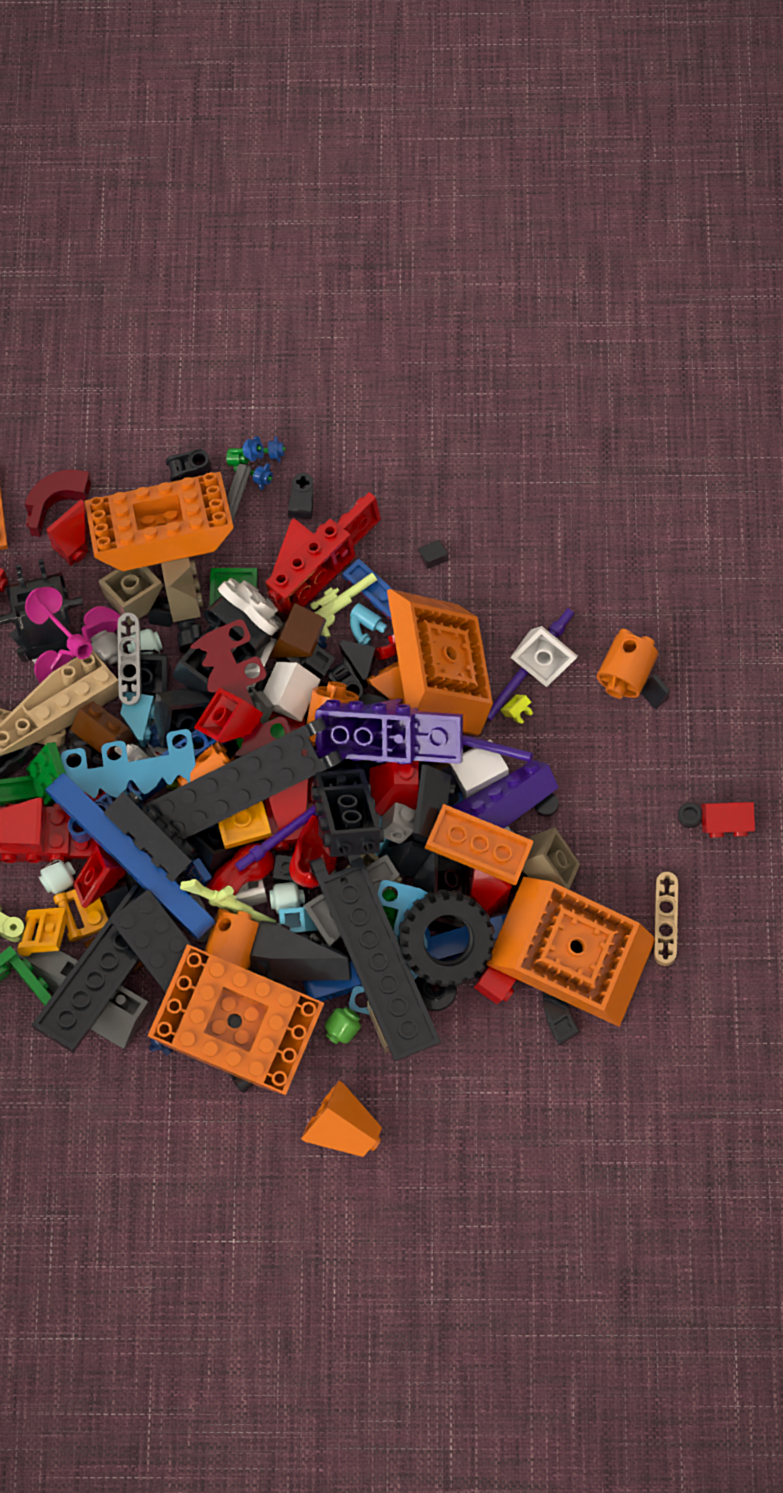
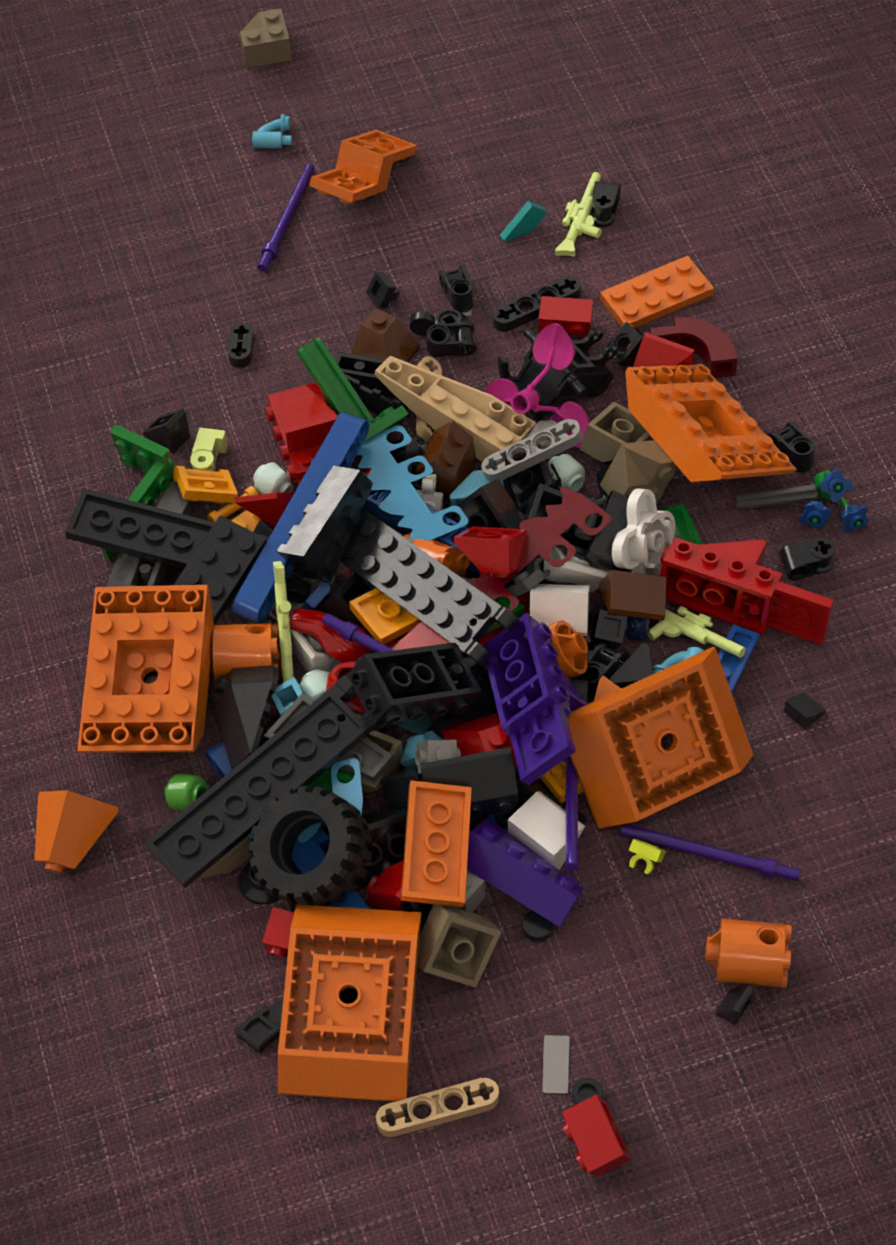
camera: 70 degrees right, 15 degrees down
(35, 539) = (625, 336): none -> black brick
(543, 655) = (721, 856): white slope -> none
(657, 829) = (556, 1064): none -> light grey sticker

